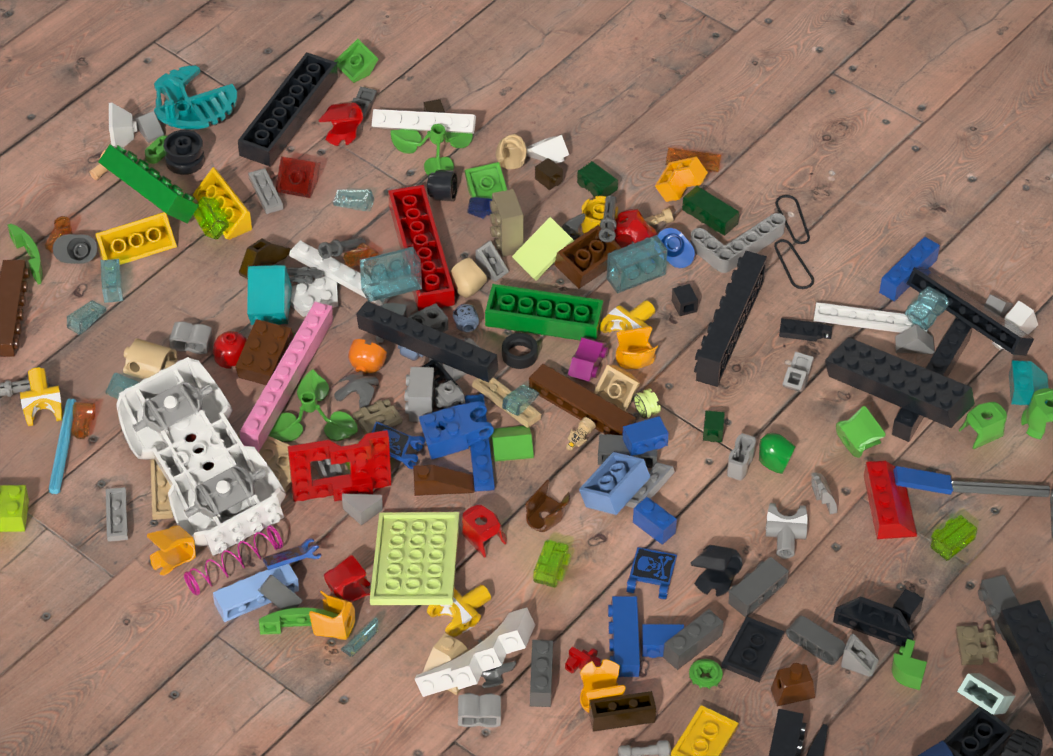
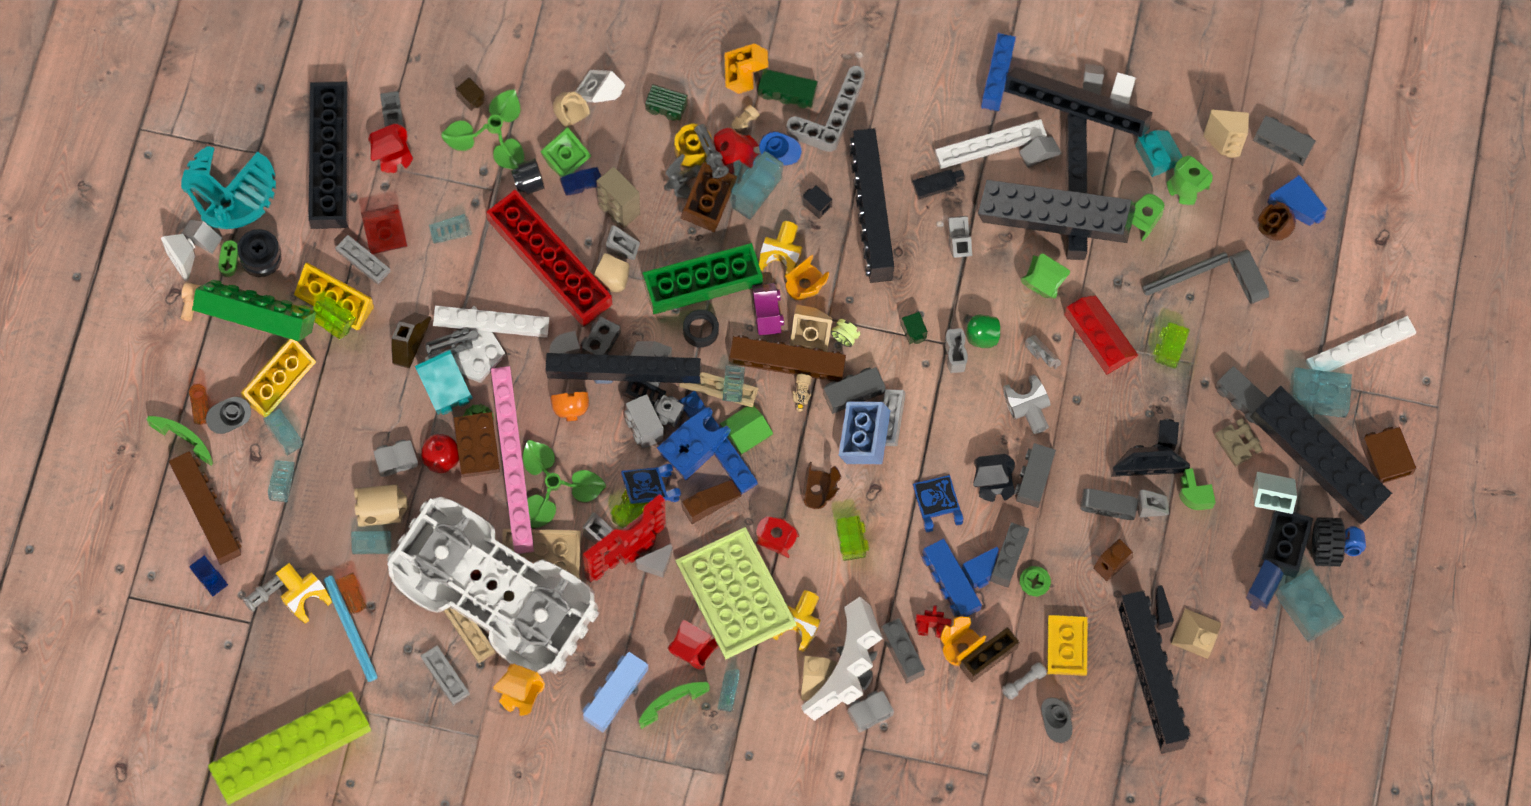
camera: 30 degrees left, 20 degrees up
(188, 574) = (550, 709): dark pink piece -> none
(279, 594) = (641, 687): dark grey tile -> none
(292, 555) = (626, 643): blue flag -> none
(336, 248) = (475, 298): dark grey pin -> none
(336, 627) = (700, 675): light orange piece -> none
(356, 61) = (357, 64): bright green slope -> none
(360, 385) = (579, 436): dark grey animal -> none
(363, 251) = (499, 292): clear orange piece -> none
(387, 416) = (622, 460): dark tan plate -> none
(390, 274) = (548, 309): clear light blue brick -> none
(423, 120) = (468, 111): white plate -> none
(466, 317) = (633, 316): sand blue head -> none
(541, 248) = (662, 207): yellowish green tile -> none
(548, 174) = (617, 115): dark brown brick -> none
(645, 436) = (868, 374): blue brick -> none
(654, 520) = (915, 452): blue brick -> none
(710, 161) = (740, 35): clear orange plate -> none
(753, 649) = (1062, 538): black plate -> none
(788, 274) = (901, 134): black piece -> none
(801, 215) = (852, 35): black piece -> none
(923, 480) = (1119, 299): blue tile -> none
(927, 308) = (1039, 115): clear light blue brick -> none

